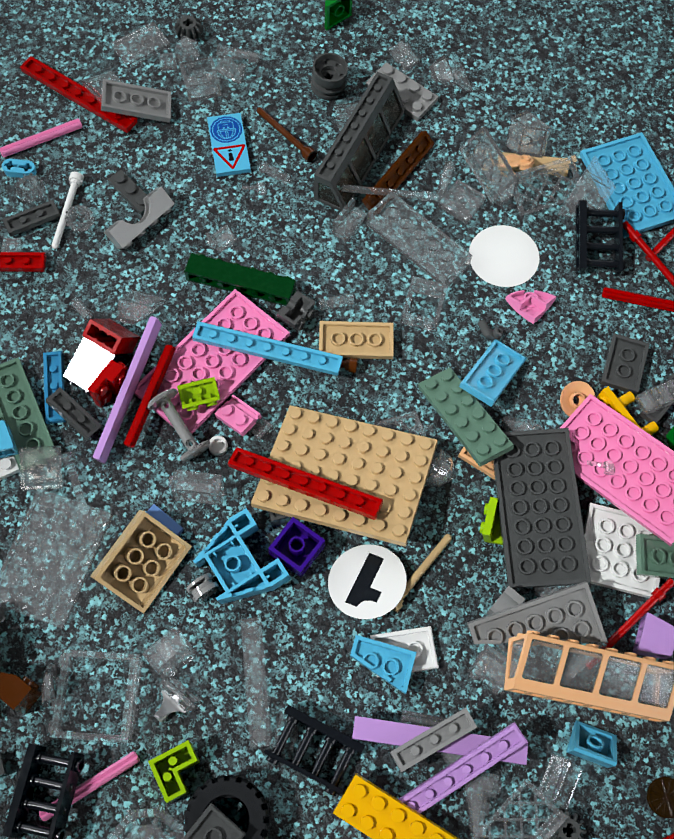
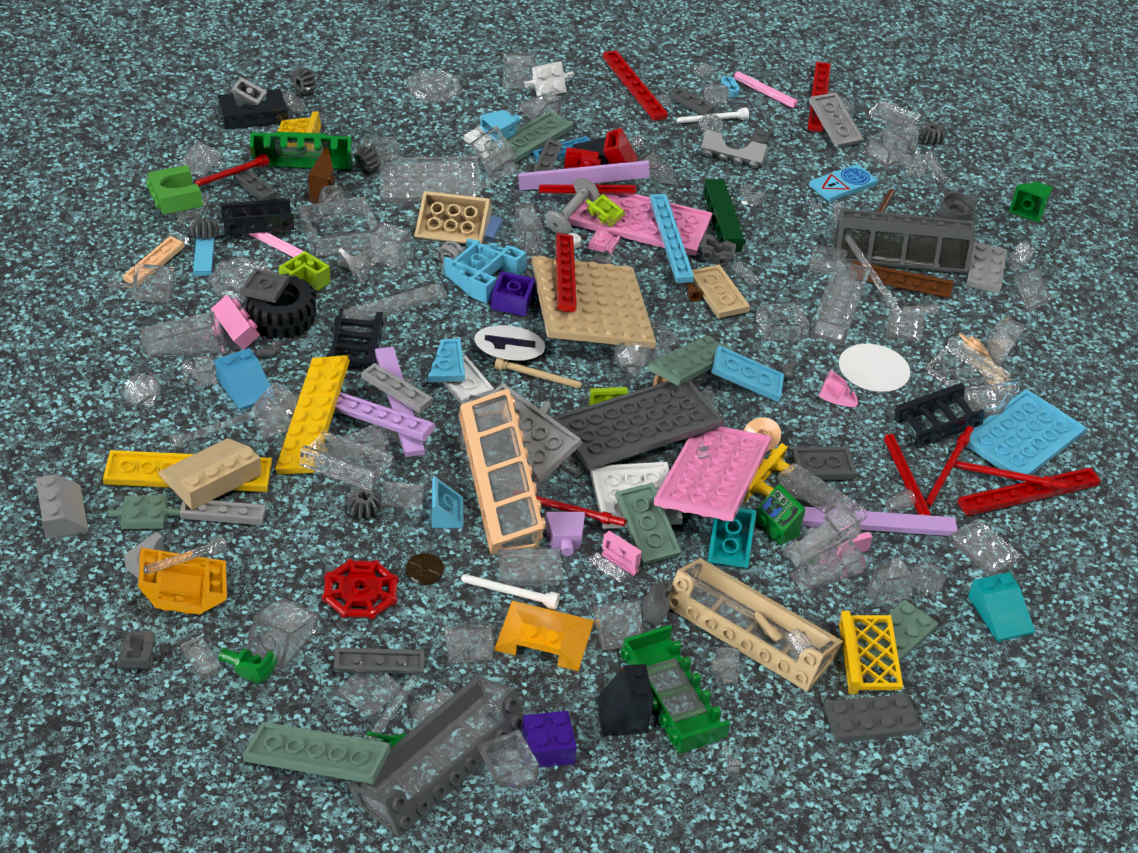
camera: 65 degrees right, 25 degrees down
(490, 167) = (952, 323): clear slope -> none

